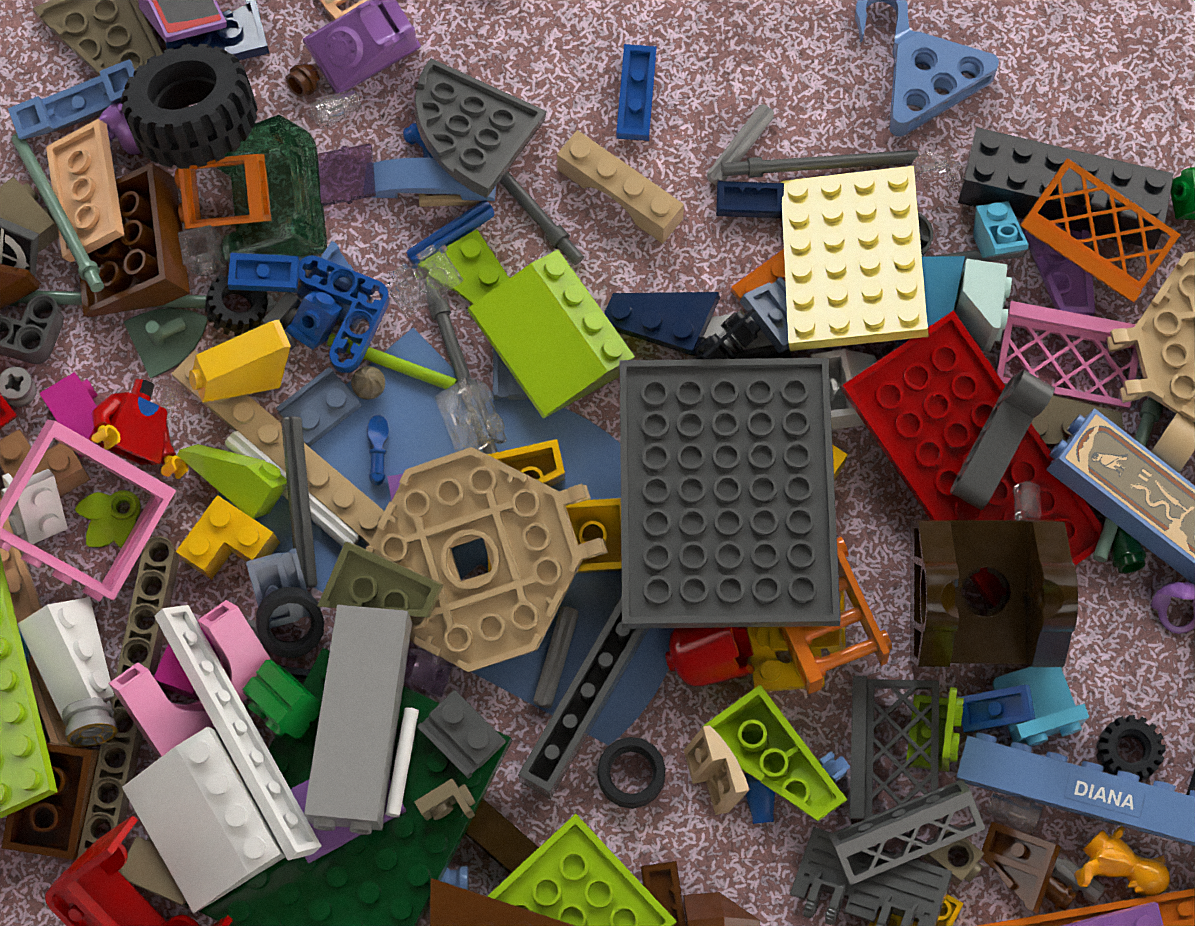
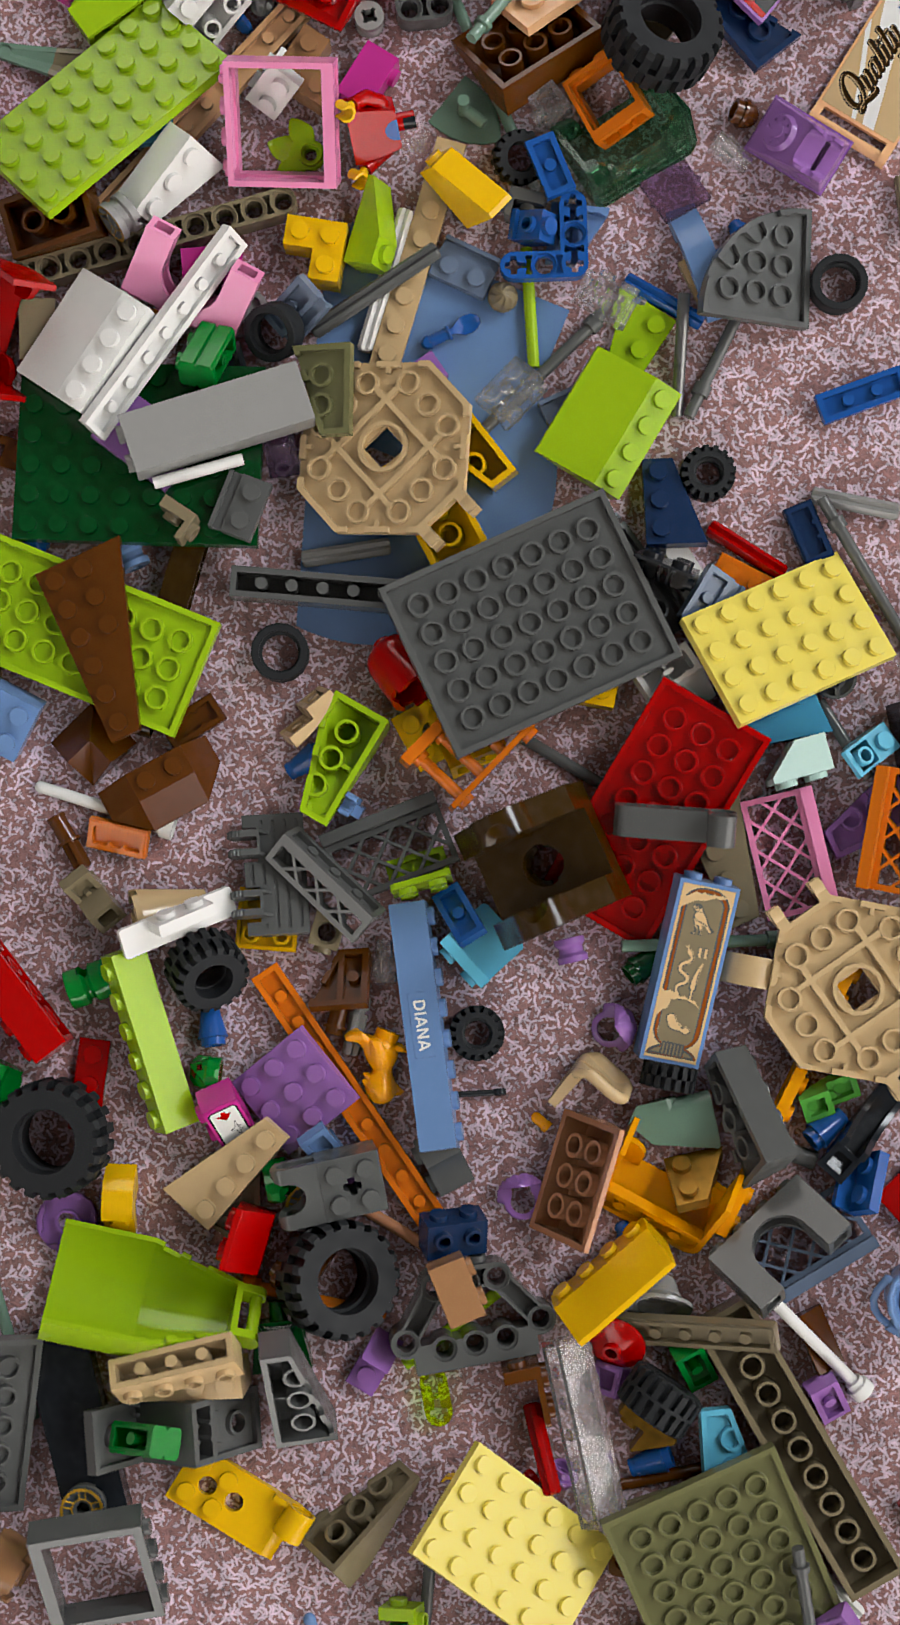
camera: 60 degrees right, 15 degrees up
(500, 232) = (680, 350): none -> flat silver bar
(522, 44) = (854, 267): none -> black tyre
(597, 168) = (768, 420): tan arch -> none
(645, 247) = (720, 460): none -> black tyre
(740, 264) = (745, 549): none -> red axle
(884, 531) = (564, 762): none -> dark grey bar
(1027, 501) = (639, 869): clear slope -> none
(1087, 614) = (571, 950): none -> medium lavender wheel

